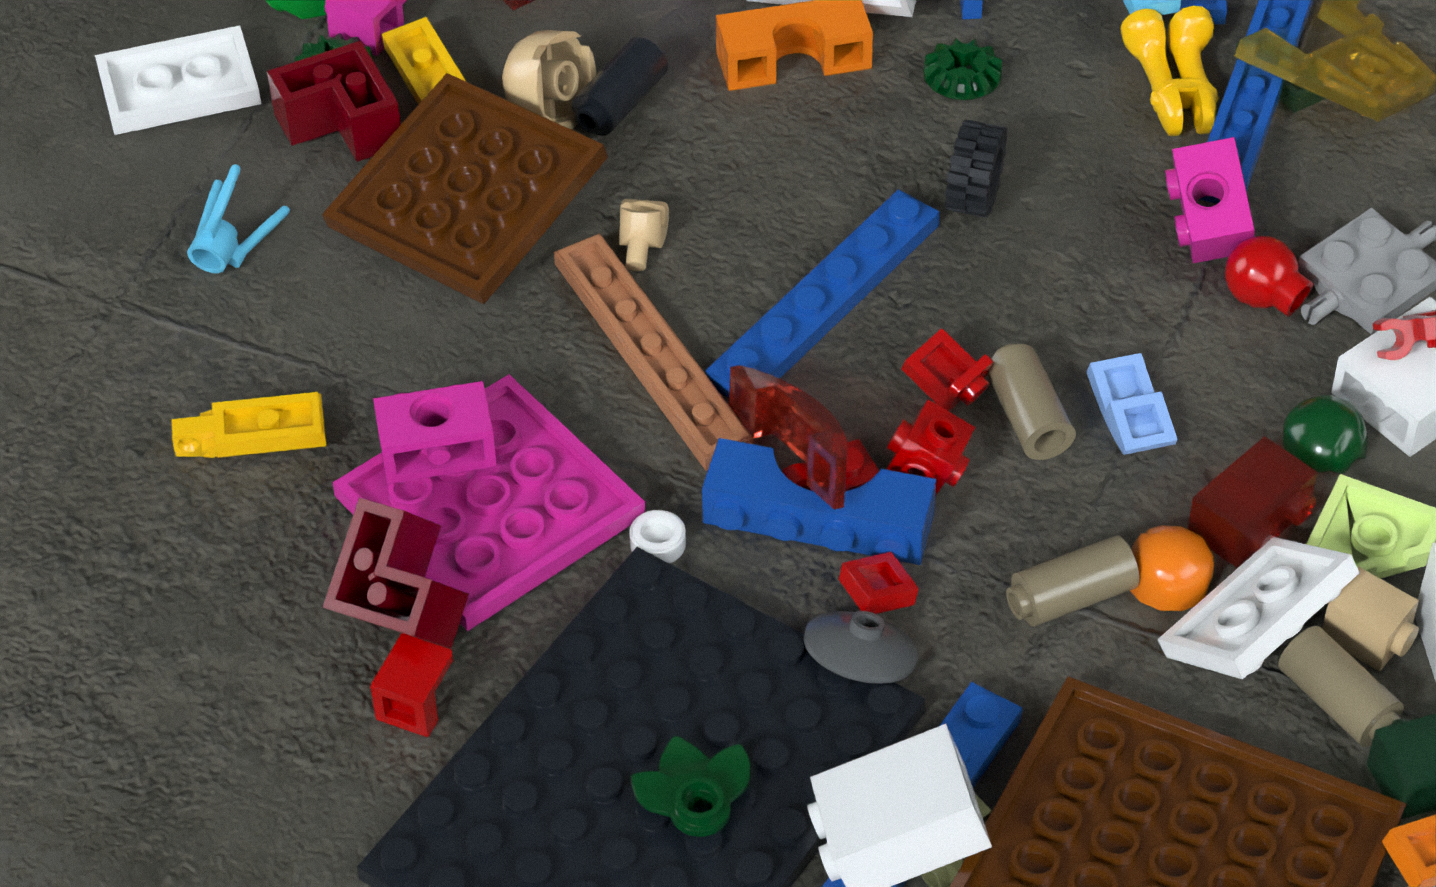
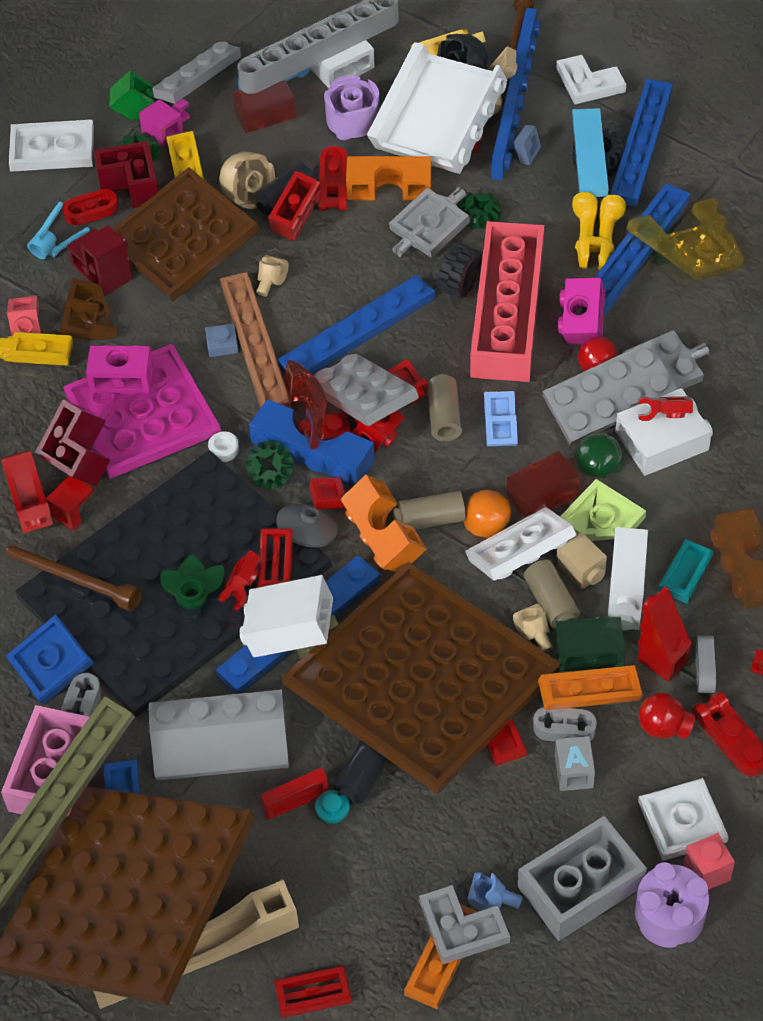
camera: 15 degrees right, 5 degrees up
(218, 371) = (23, 315): none -> coral bracket
(282, 170) = (90, 207): none -> red plate
(325, 683) = (26, 491): none -> red arch
(331, 349) = (87, 313): none -> reddish brown slope
(334, 251) = (102, 258): none -> dark red brick
(578, 833) = (125, 596): none -> reddish brown piece
(591, 356) = (221, 340): none -> sand blue plate
(653, 109) = (295, 206): none -> red brick
(697, 58) = (333, 178): none -> red plate
(764, 578) = (282, 461): none -> dark green gear
(784, 754) = (242, 574): none -> red plate
(822, 670) = (277, 533): none -> red tile
(889, 101) = (429, 222): none -> light grey plate
(894, 390) = (364, 389): none -> light grey plate
(964, 592) = (368, 508): none -> orange arch
(1078, 209) = (507, 302): none -> coral brick
(1297, 329) = (594, 397): none -> light grey plate
(1328, 746) = (533, 624): none -> tan piece

